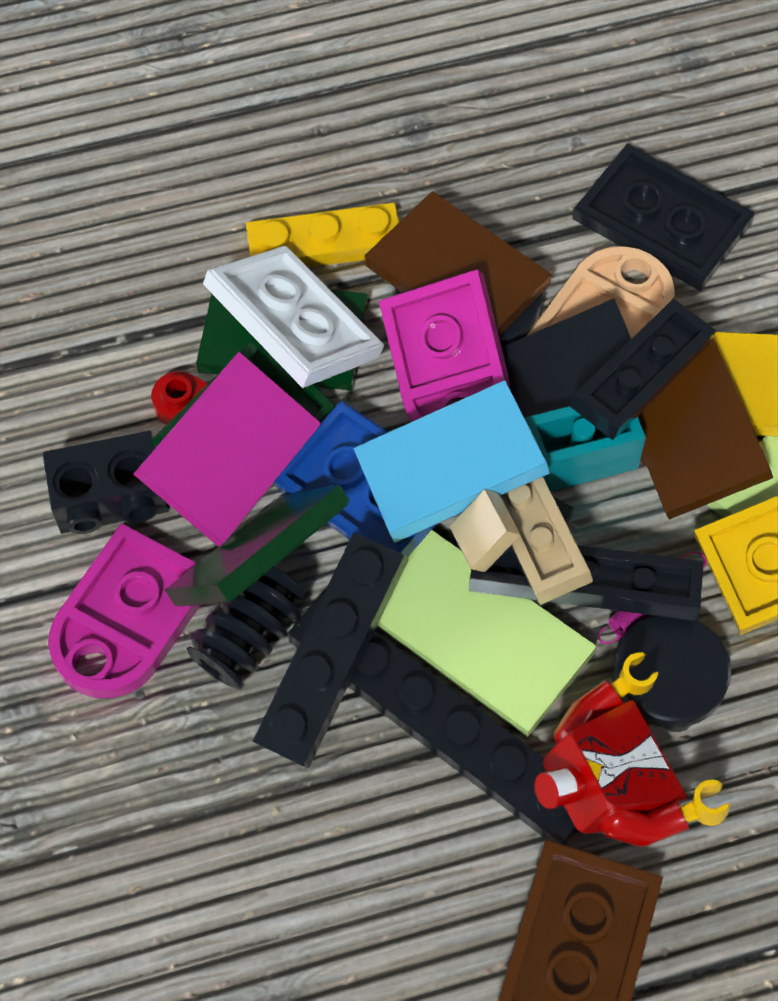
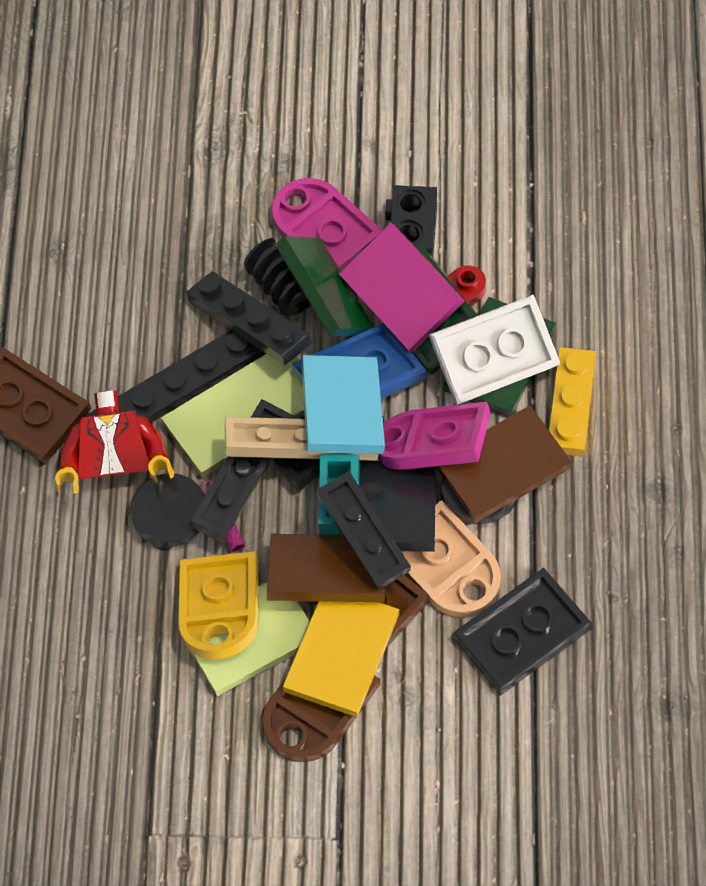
camera: 110 degrees right, 0 degrees up
(484, 530) = (284, 408): tan tile -> none

